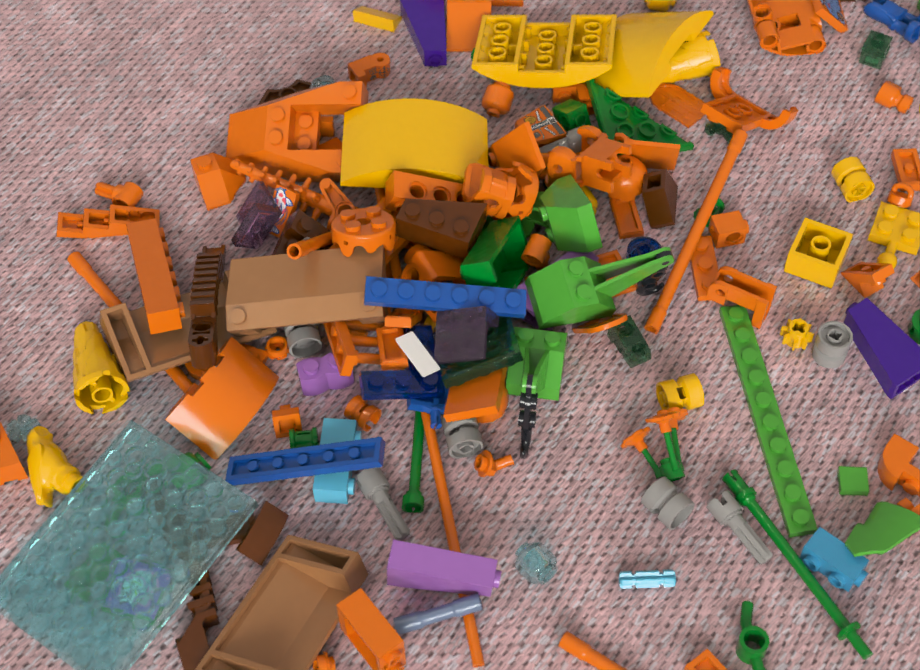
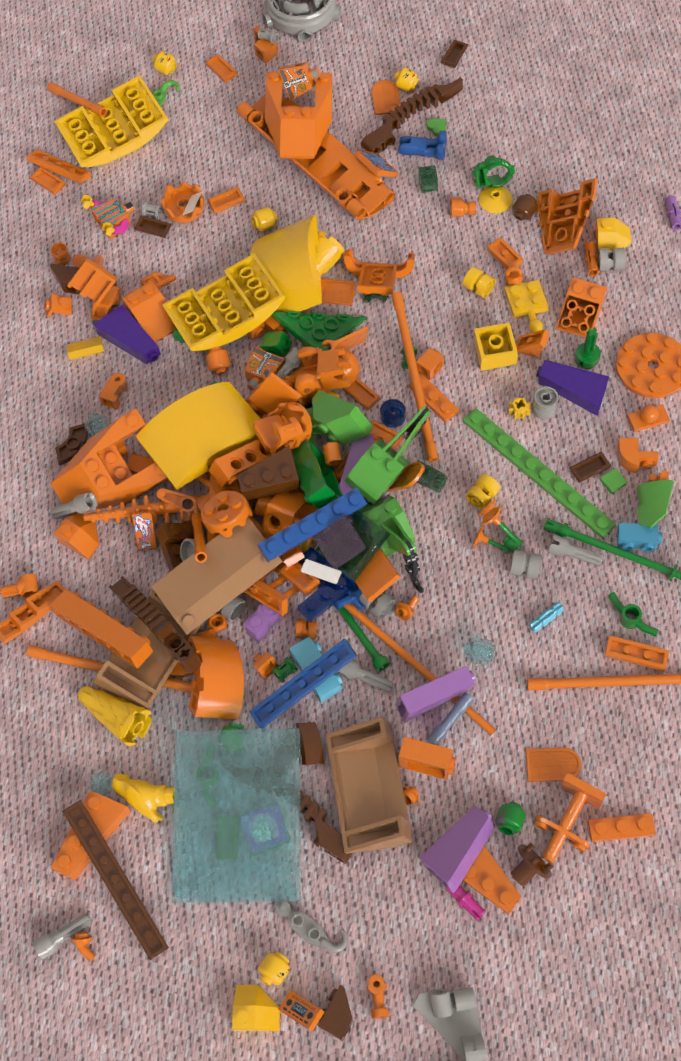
camera: 30 degrees left, 10 degrees up
(238, 147) = (81, 504): none -> light grey piece
(256, 218) = (132, 543): bracket -> none
(660, 198) = (375, 368): reddish brown slope -> none
(744, 291) = (472, 402): orange piece -> none
(835, 448) = (590, 467): none -> reddish brown tile

